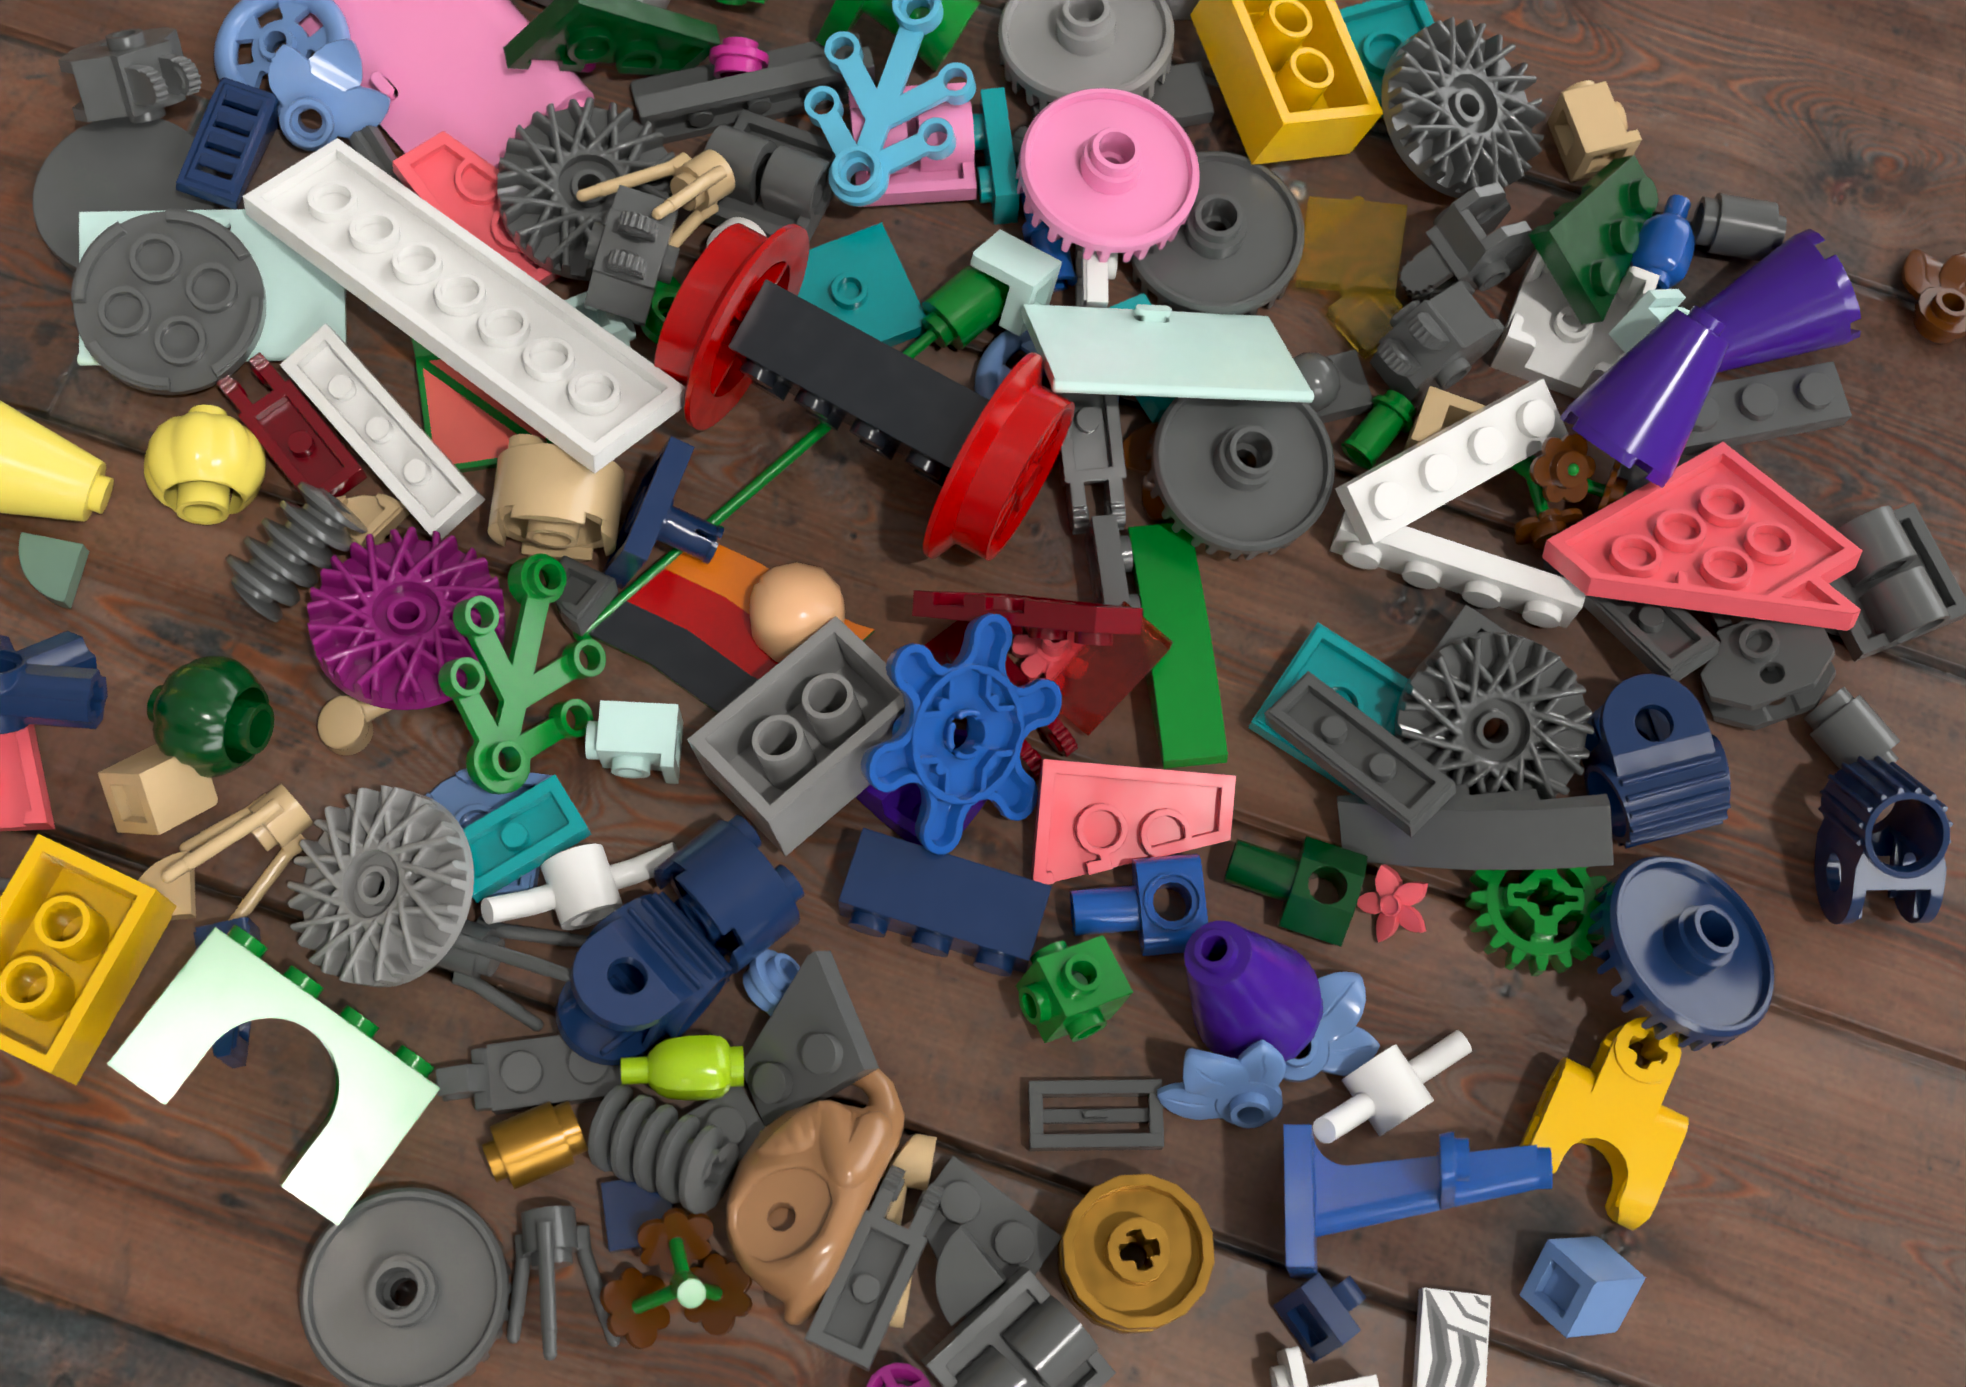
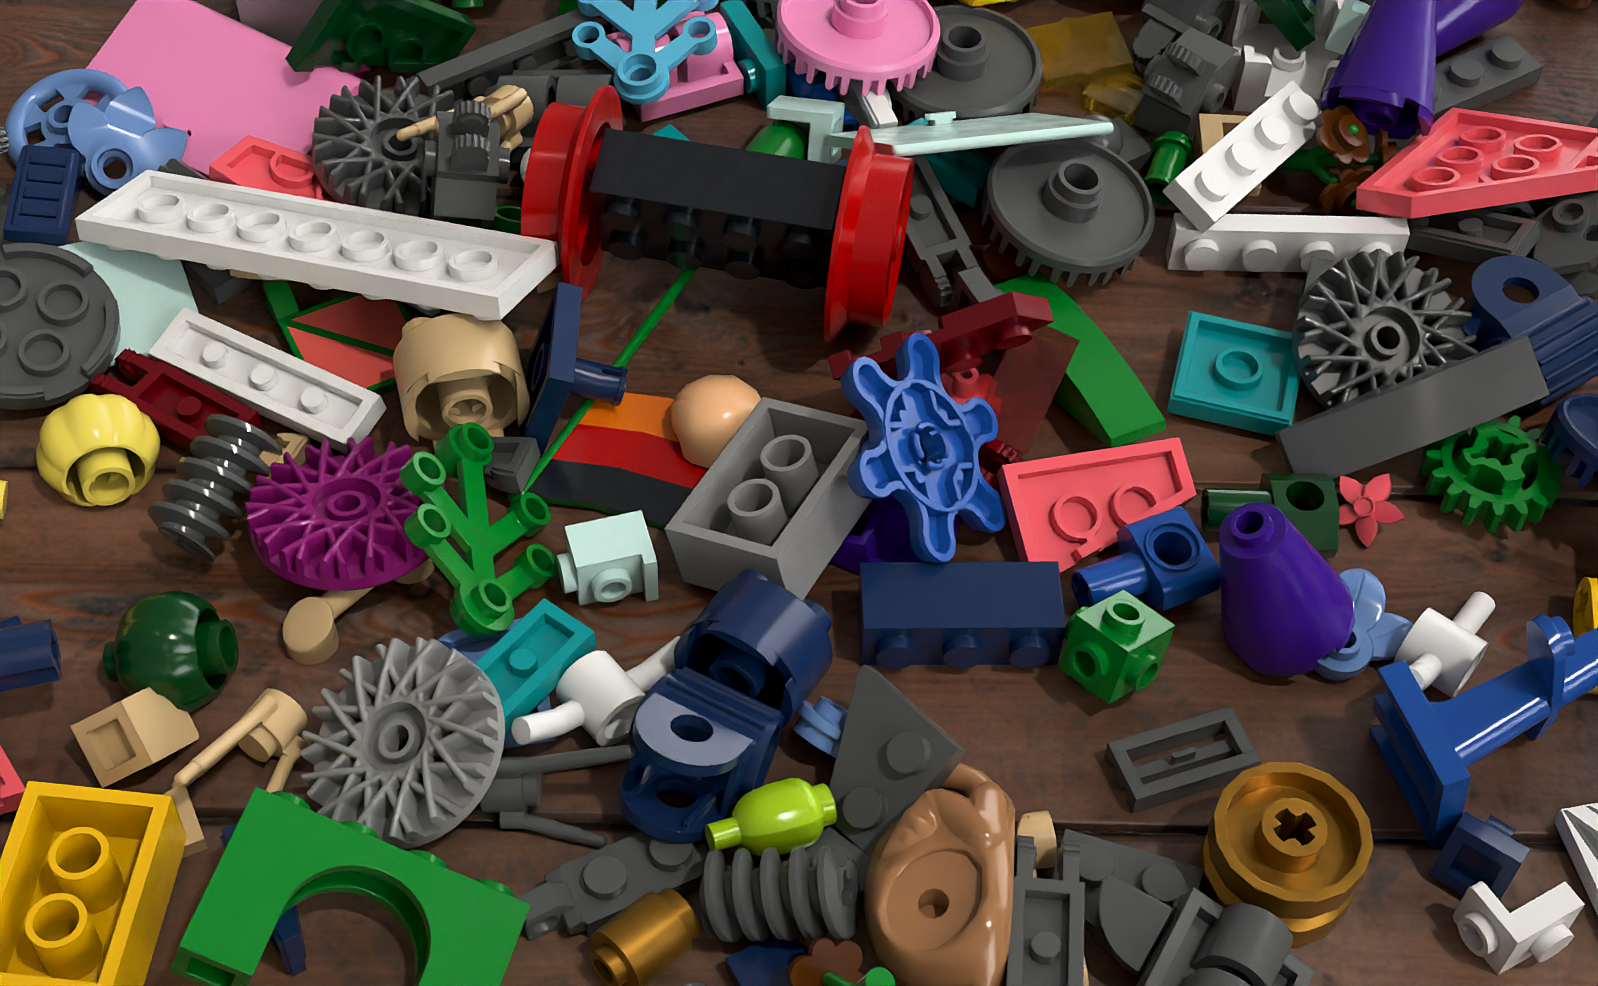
camera: 15 degrees left, 20 degrees down
(737, 57) = (493, 28): dark pink plate -> none
(1229, 1088) = (1295, 680): medium blue plate -> none
(1360, 754) = (1283, 381): dark grey tile -> none

